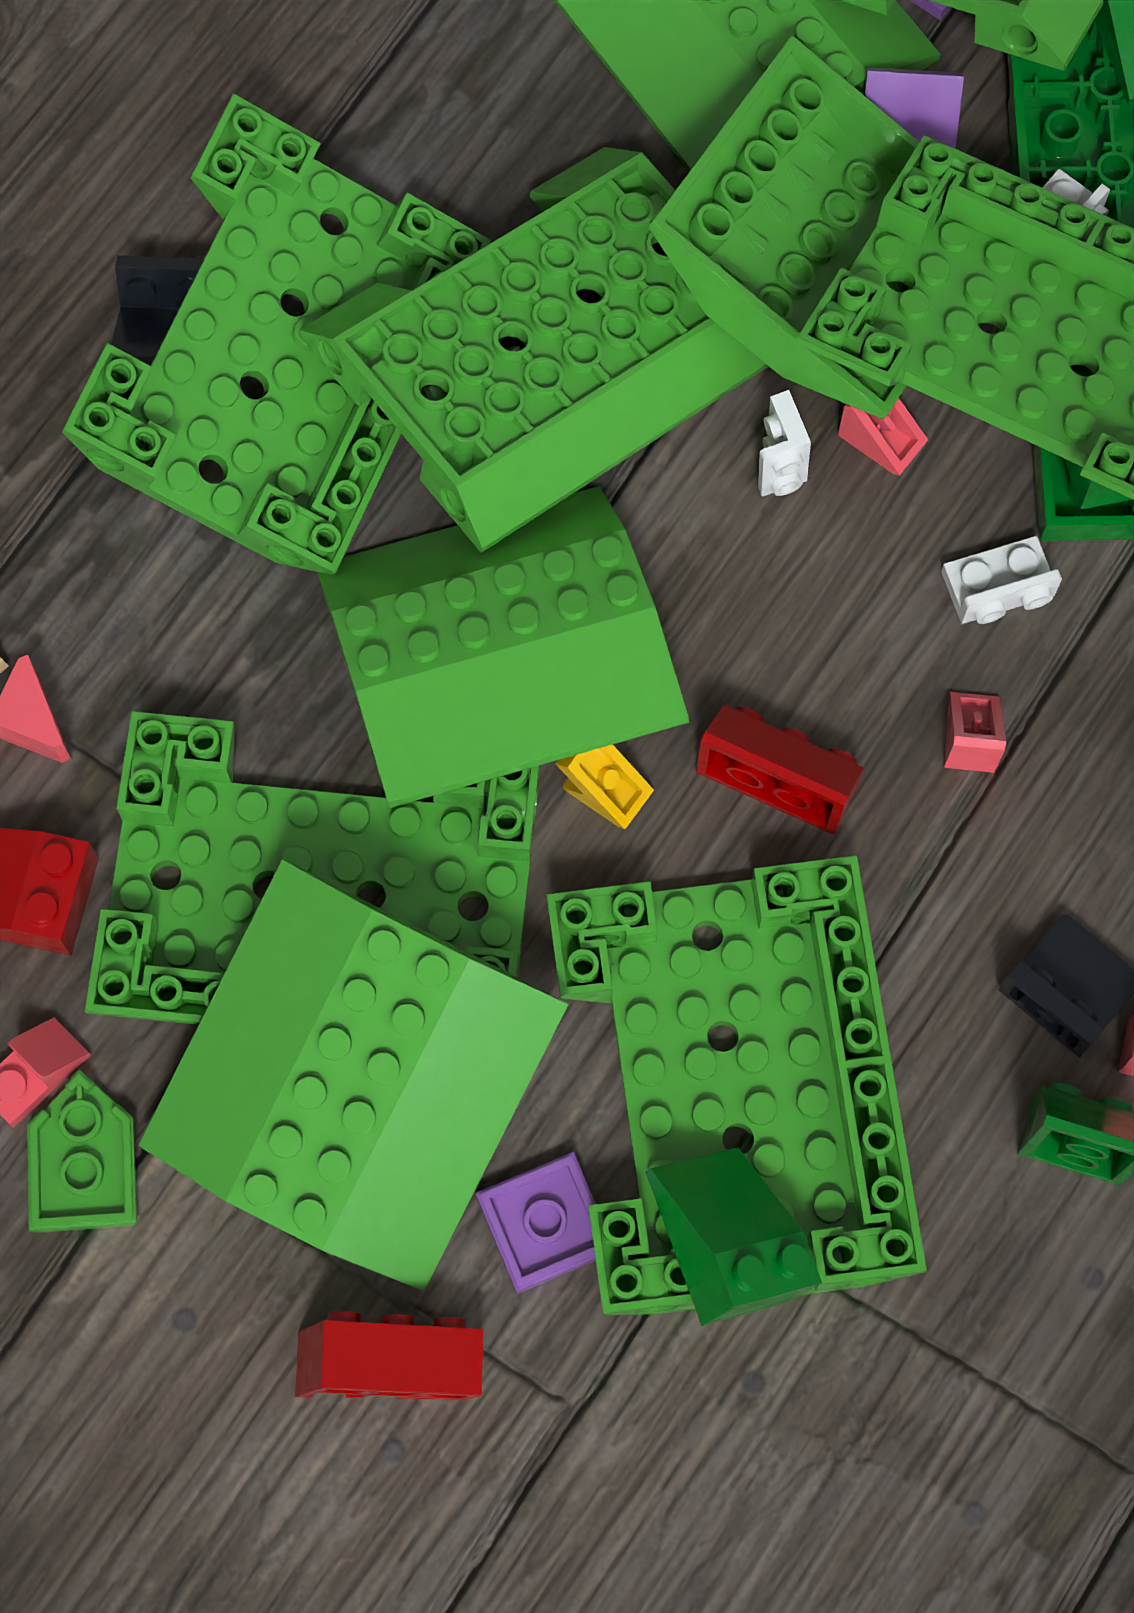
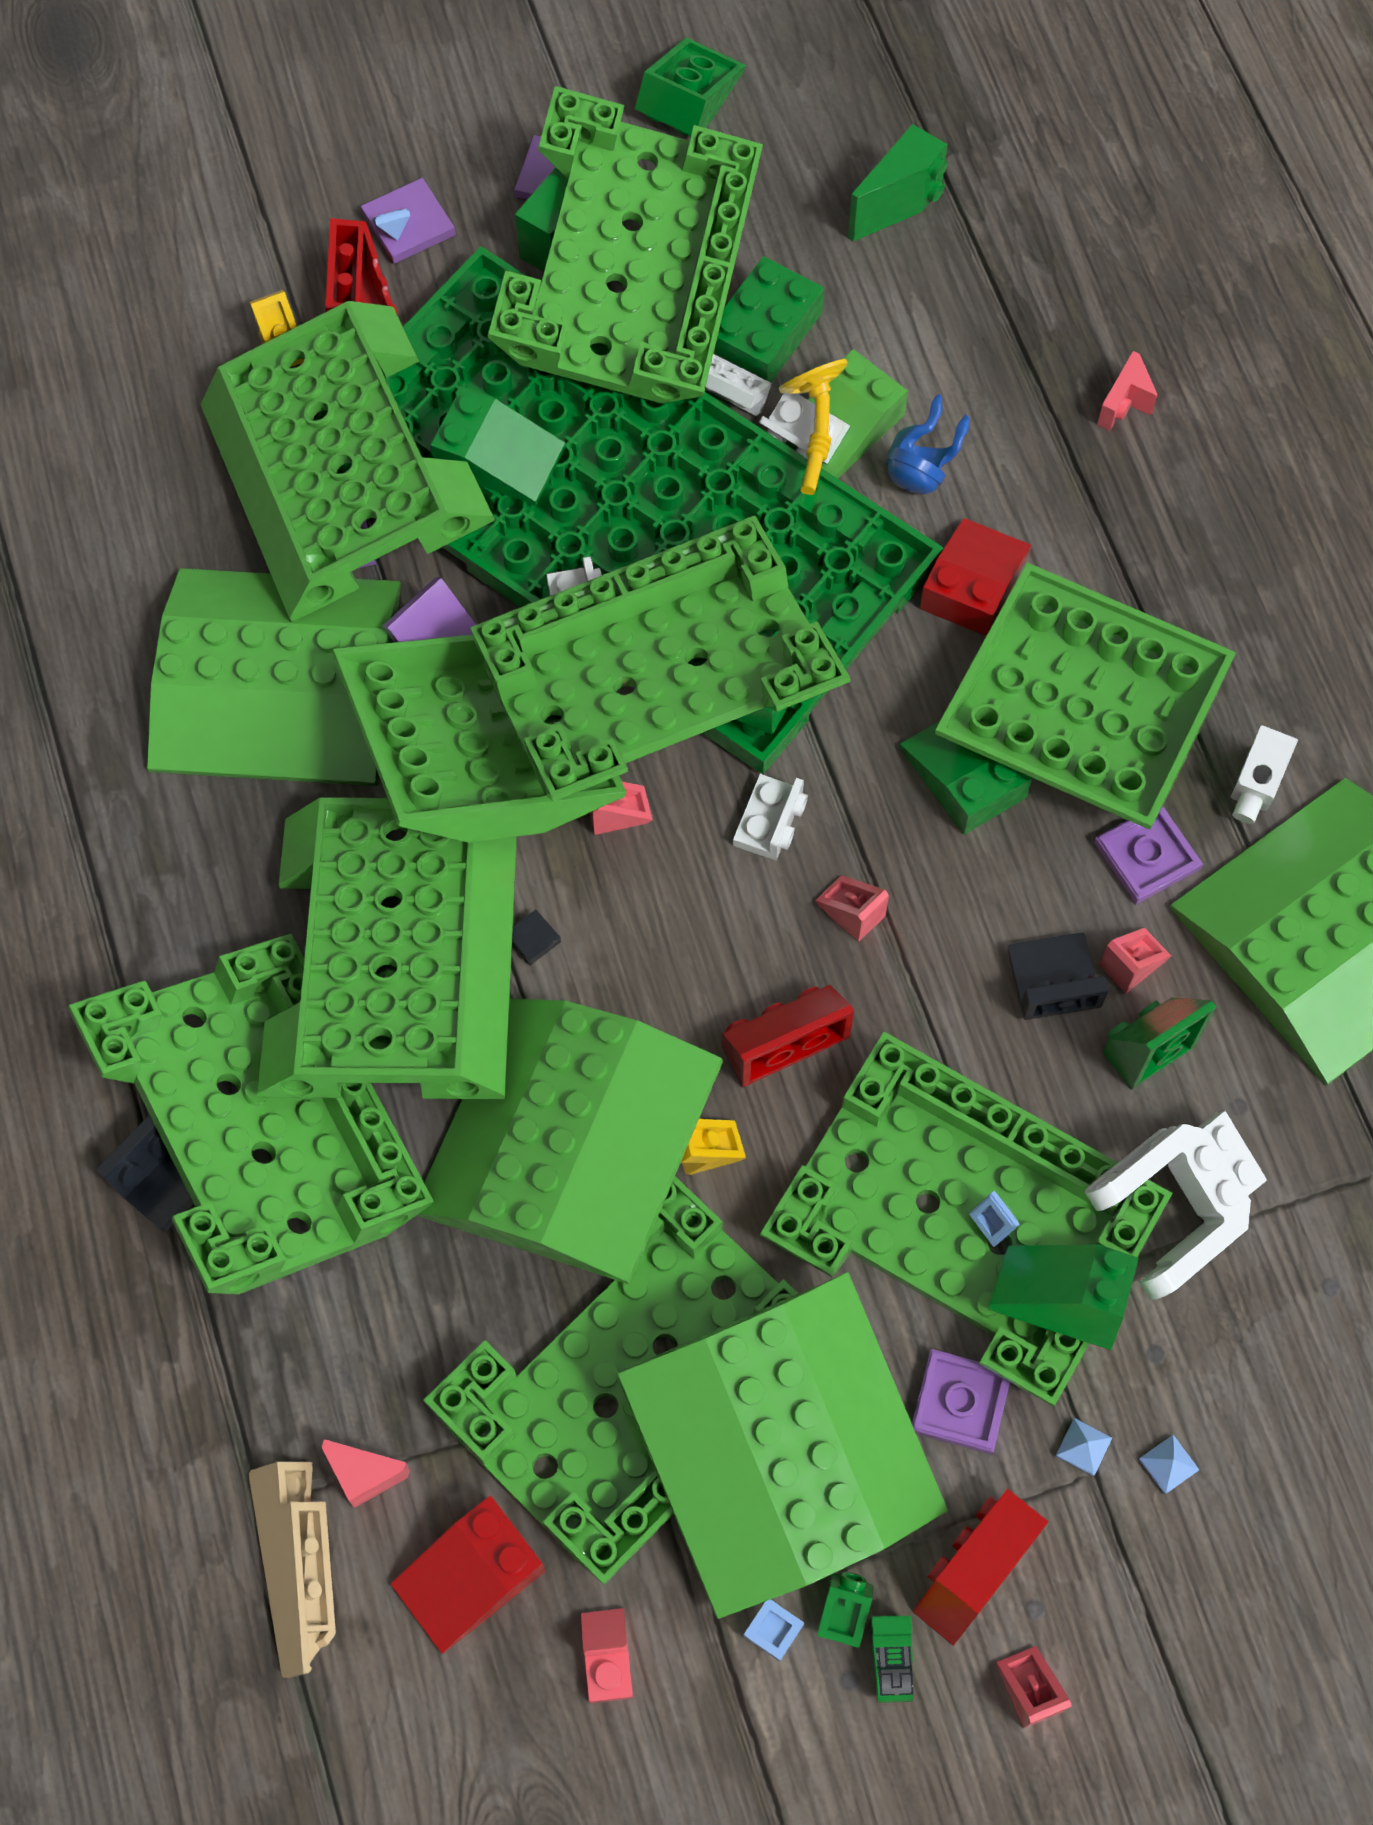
camera: 50 degrees left, 5 degrees down
(81, 1162) = (693, 1667): bright green tile -> none
(169, 1207) = (773, 1629): none -> light blue tile
(231, 1344) = (892, 1658): none -> leg
(246, 1262) = (846, 1609): none -> green bracket
(308, 1502) = (1032, 1687): none -> coral slope
(596, 1379) = (1083, 1447): none -> light blue slope
(646, 1479) = (1169, 1464): none -> light blue slope
(680, 460) = (534, 937): none -> black tile
(753, 1111) = (994, 1218): none -> light blue slope
(786, 448) = (585, 866): white bracket -> none
(988, 1299) = (1214, 1175): none -> white plate

